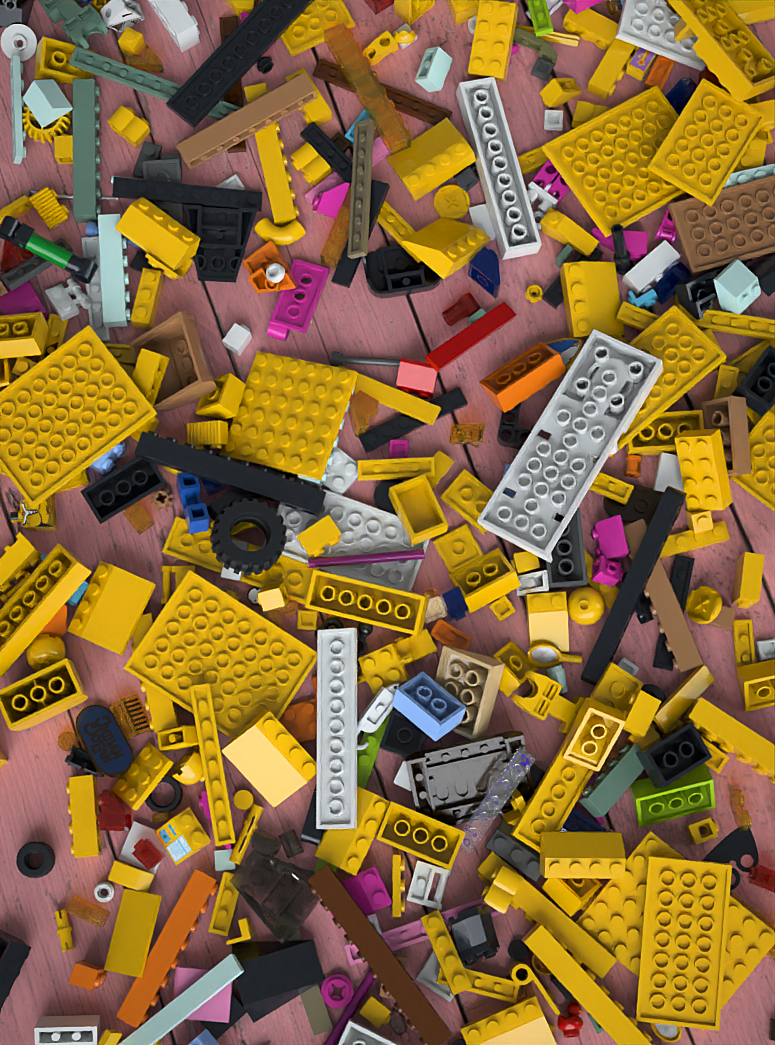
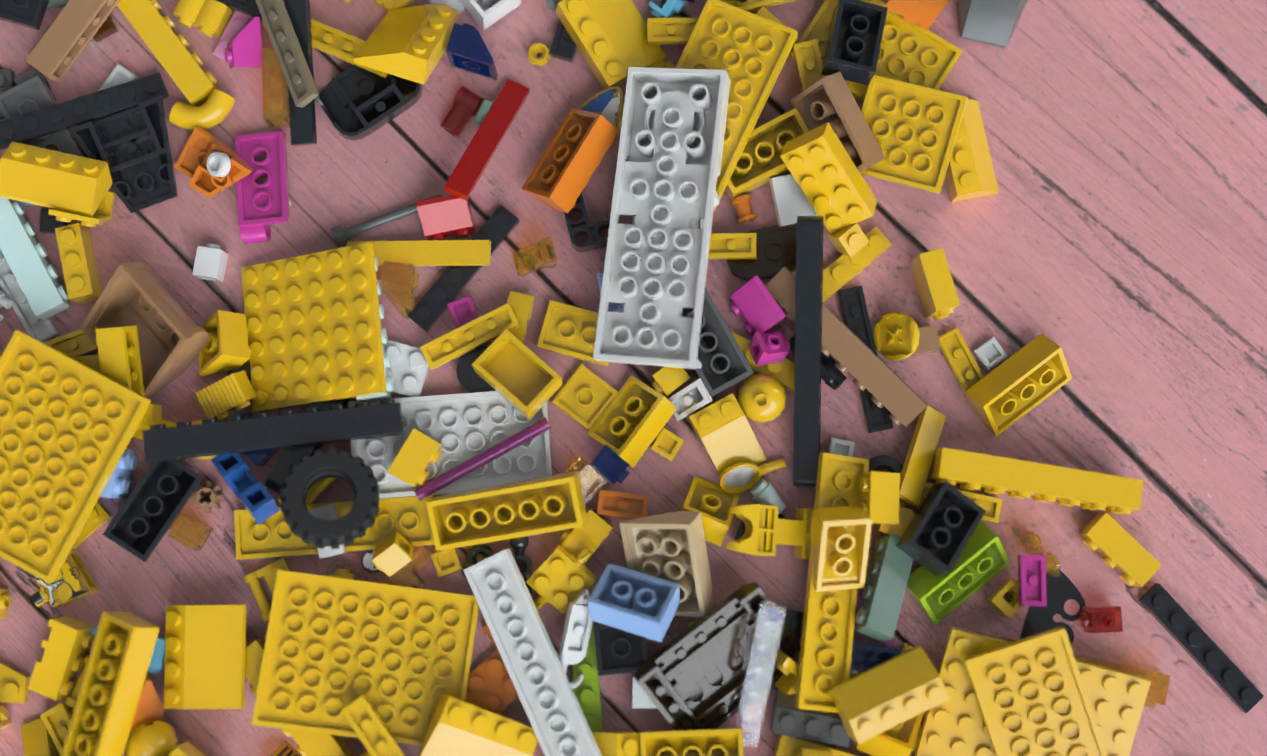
camera: 30 degrees left, 5 degrees up
(724, 823) = (1032, 580): none -> dark pink plate

